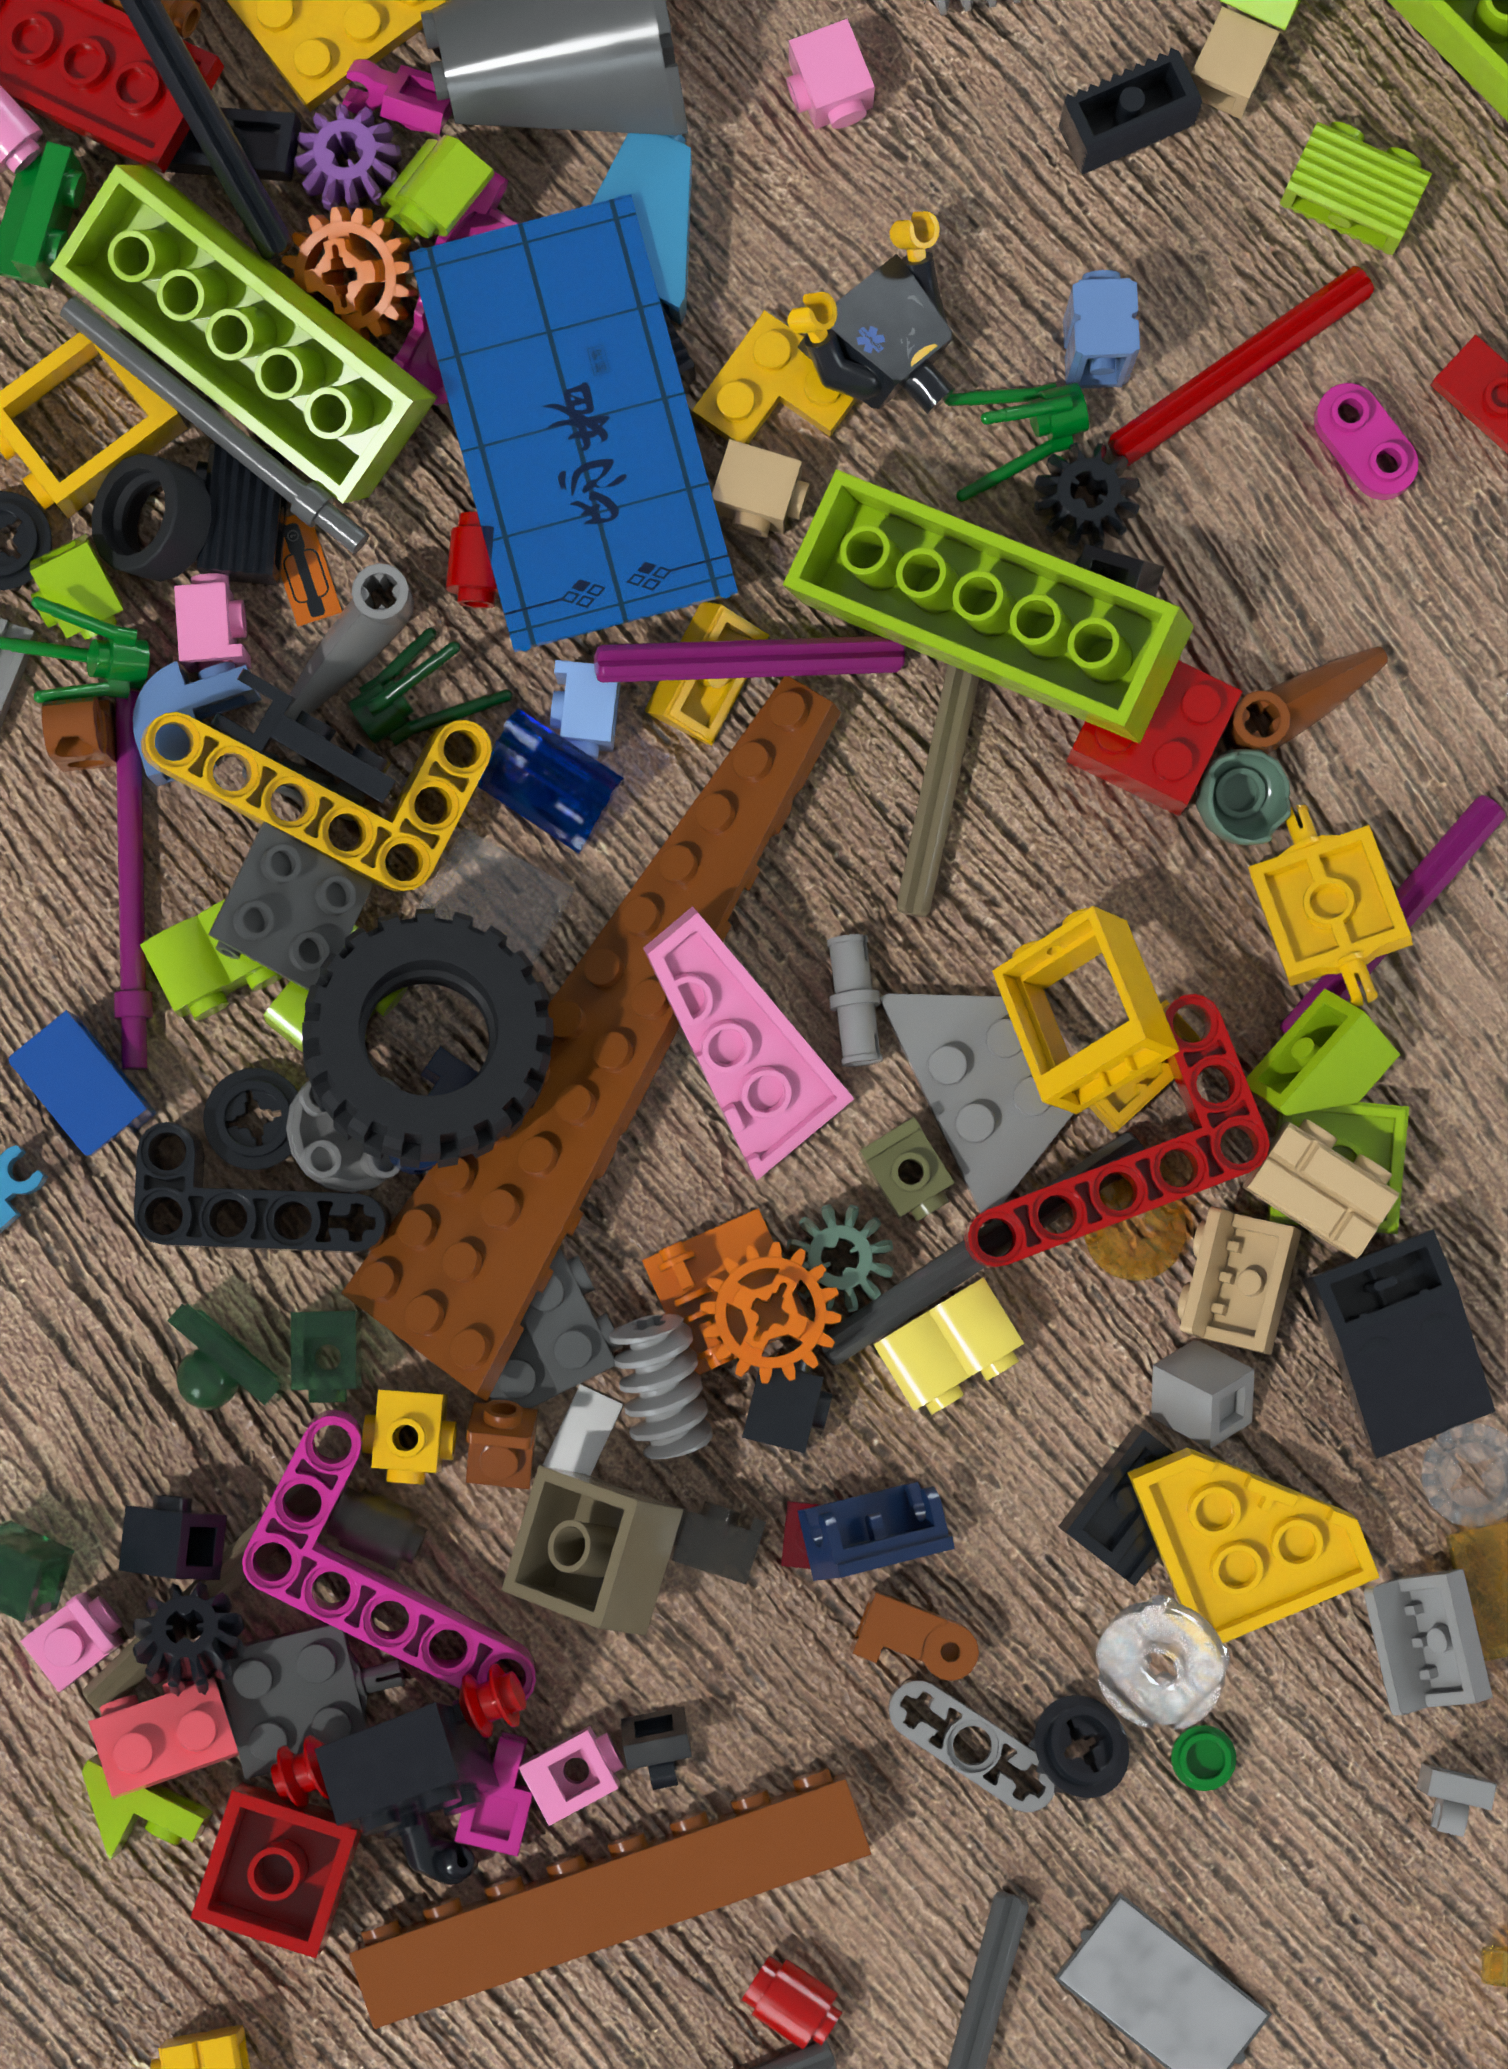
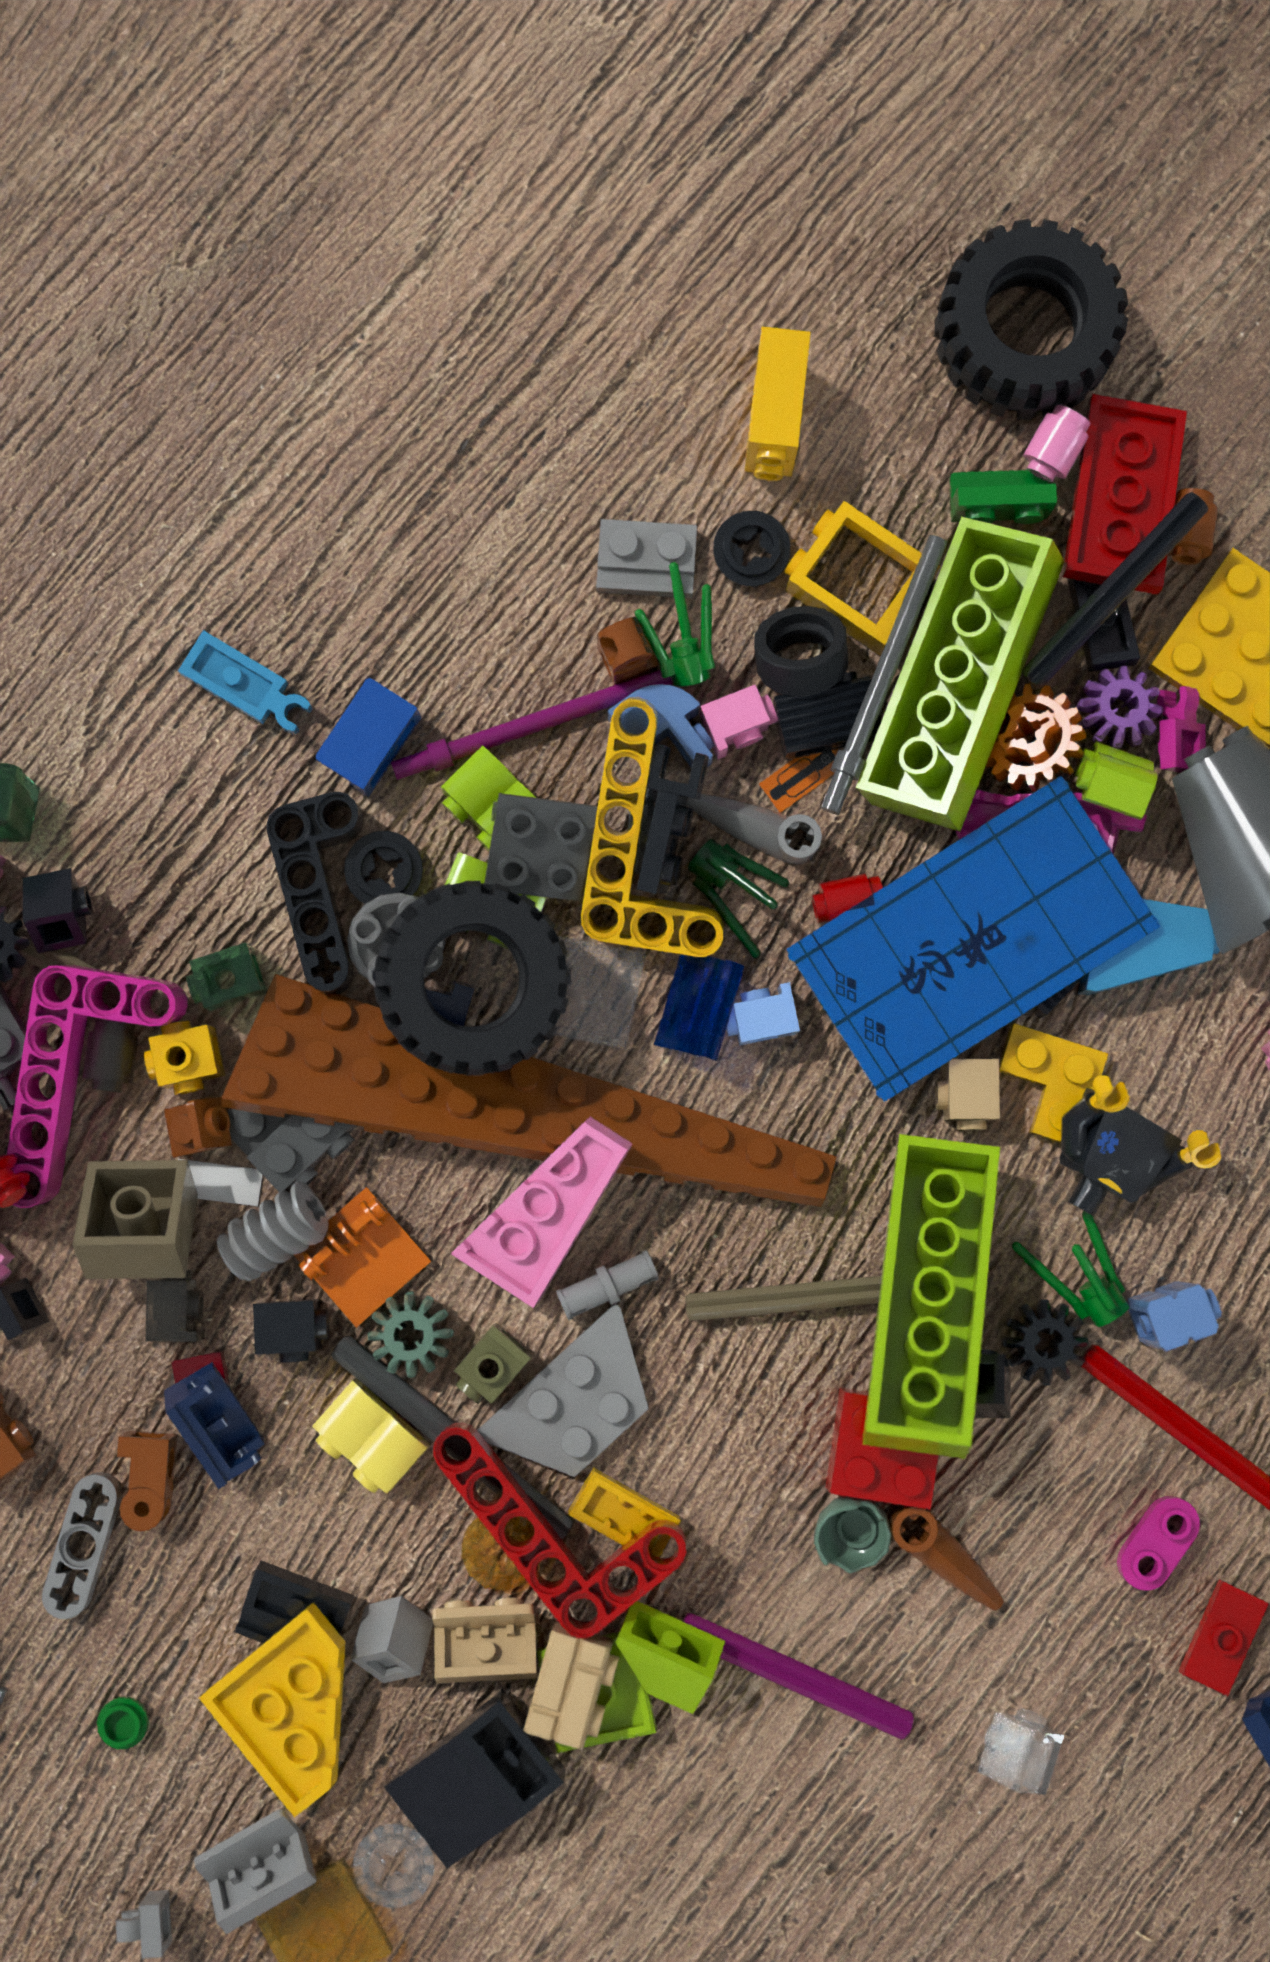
camera: 70 degrees right, 0 degrees up
(77, 580) = (736, 612): lime brick -> none
(215, 1369) = (196, 902): clear green tile -> none
(703, 704) = (820, 1096): yellow slope -> none
(743, 1299) = (344, 1320): orange gear -> none
(747, 659) = (837, 1124): magenta axle -> none
(1080, 1719) = (100, 1648): black gear -> none
(1115, 1058) = (632, 1516): yellow window -> none
(1170, 1630) = (204, 1677): clear plate -> none
(1330, 905) = (789, 1626): yellow plate -> none

